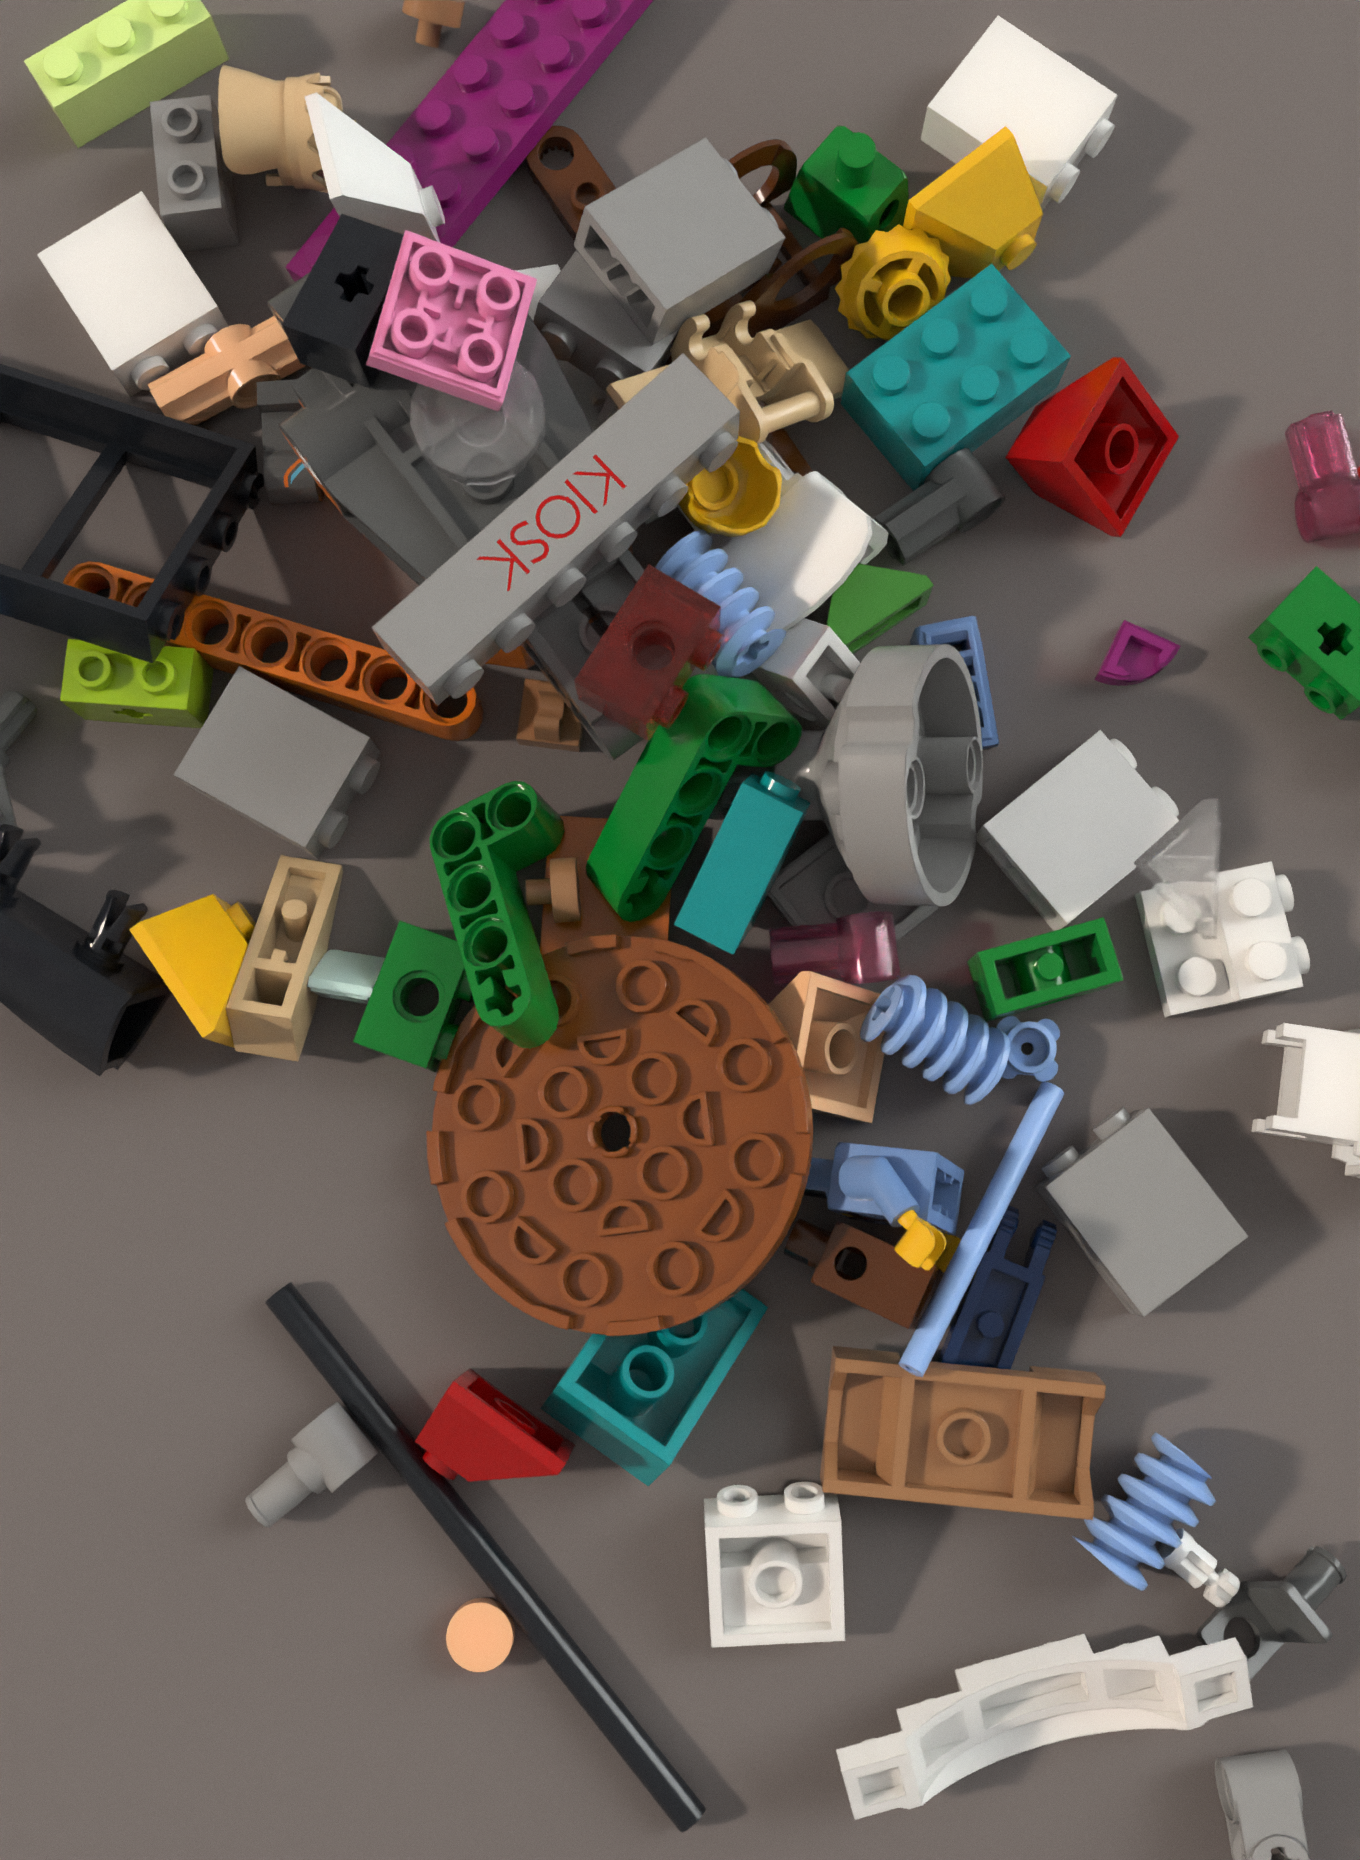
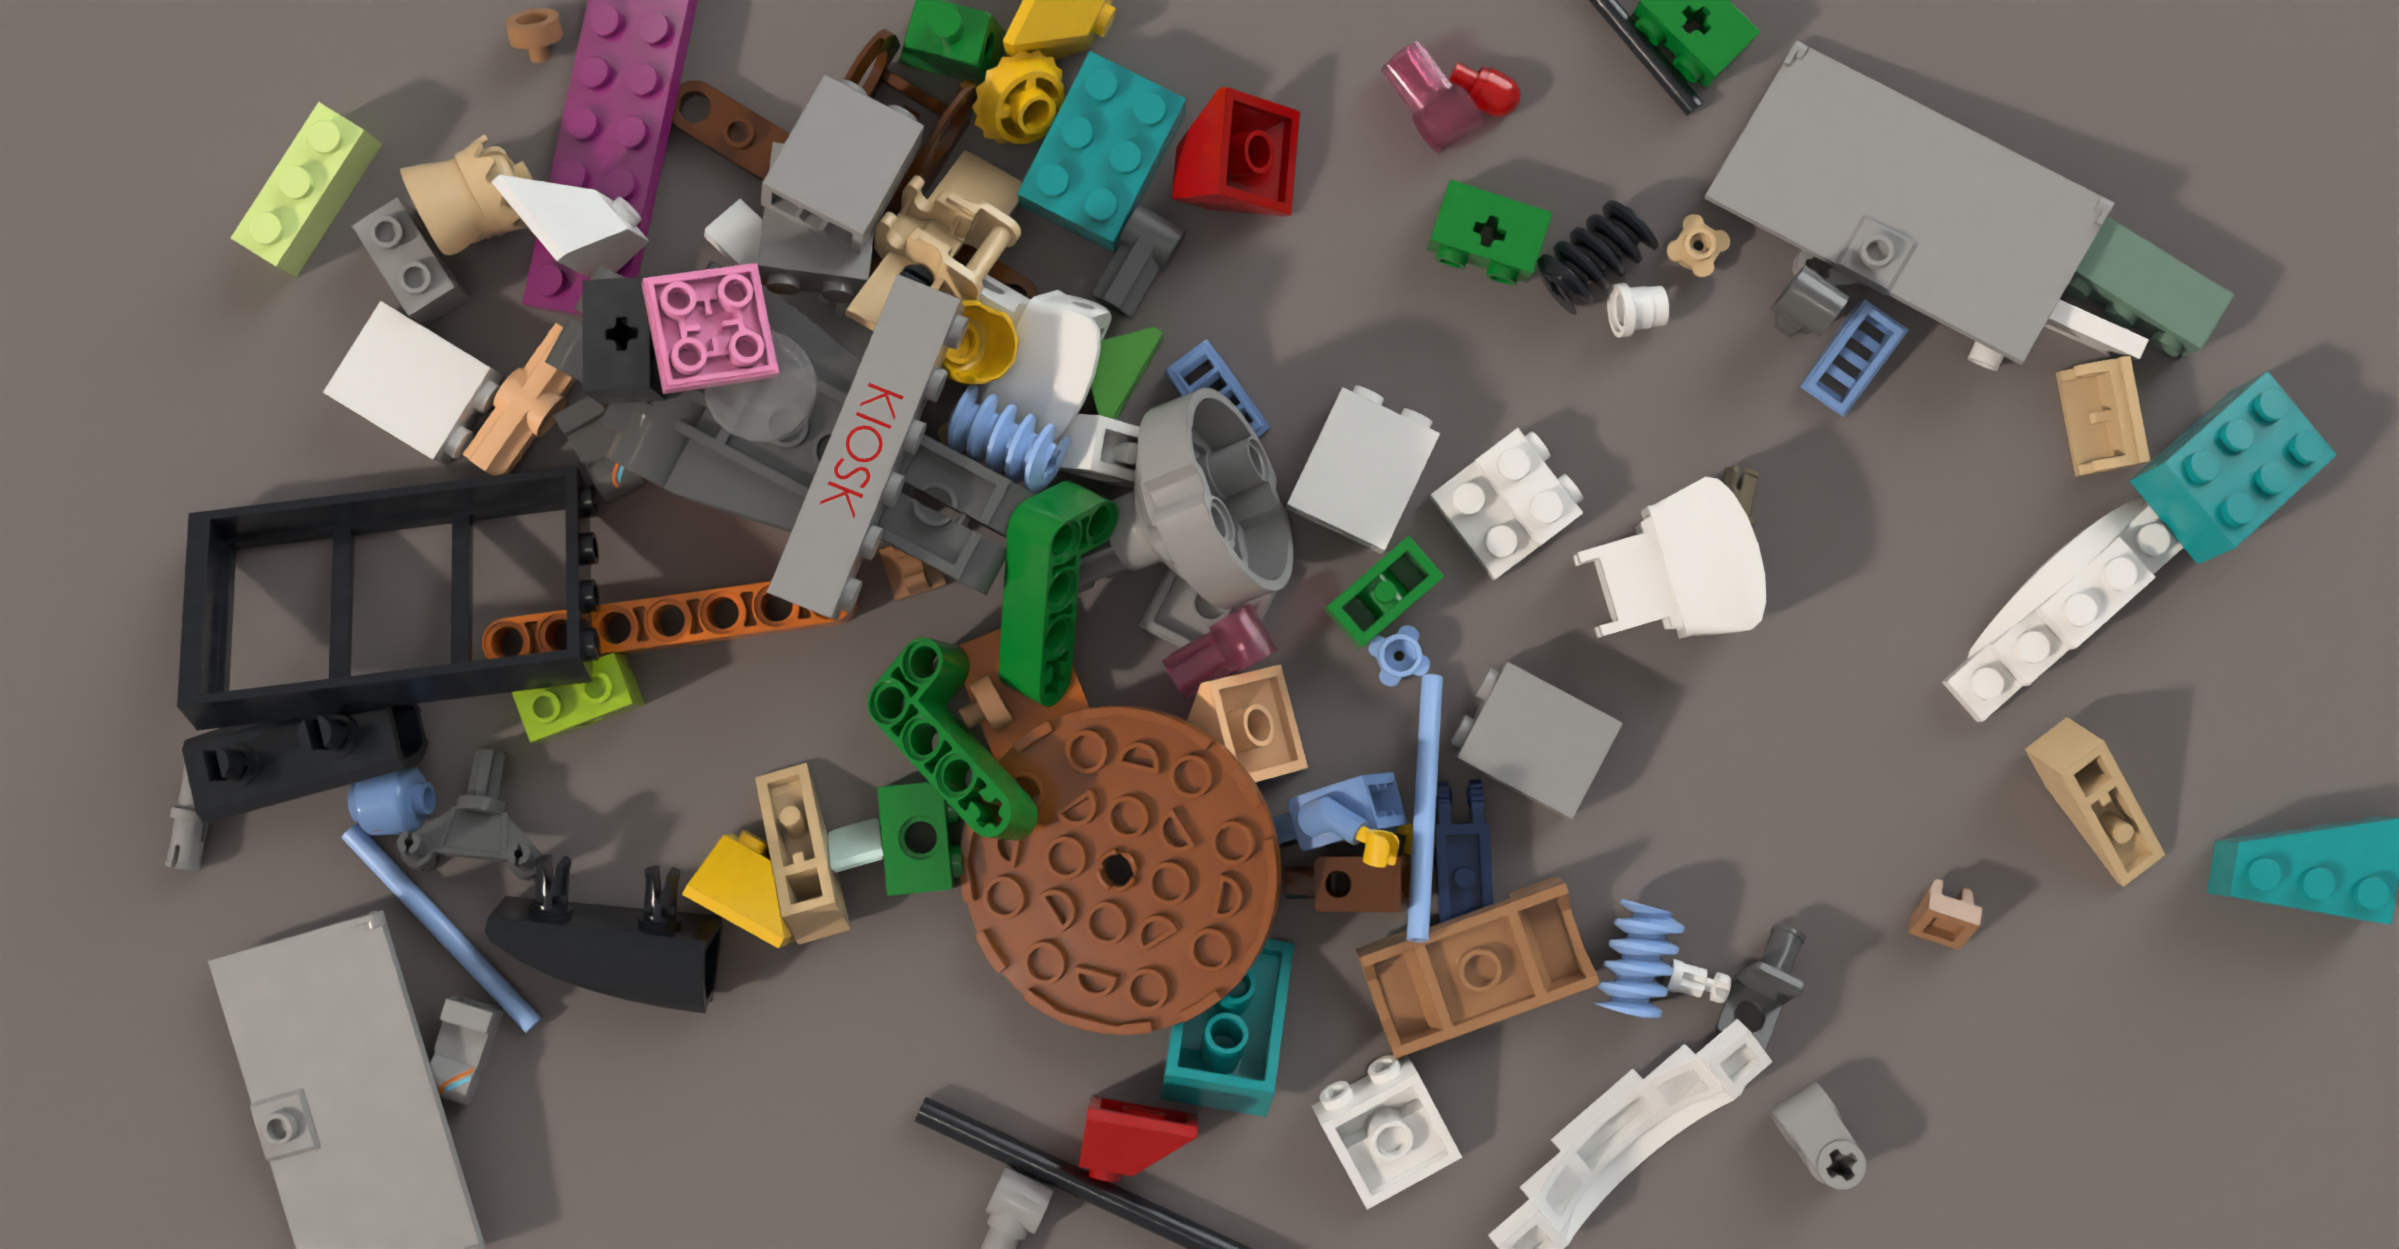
camera: 35 degrees left, 5 degrees up
(280, 763) = (721, 707): light grey brick -> none
(653, 614) = (967, 479): clear red brick -> none
(743, 861) = (1119, 623): teal slope -> none
(940, 1032) = (1327, 678): light blue piece -> none
(1135, 656) = (1344, 307): magenta tile -> none
(1186, 867) = (1456, 466): clear slope -> none

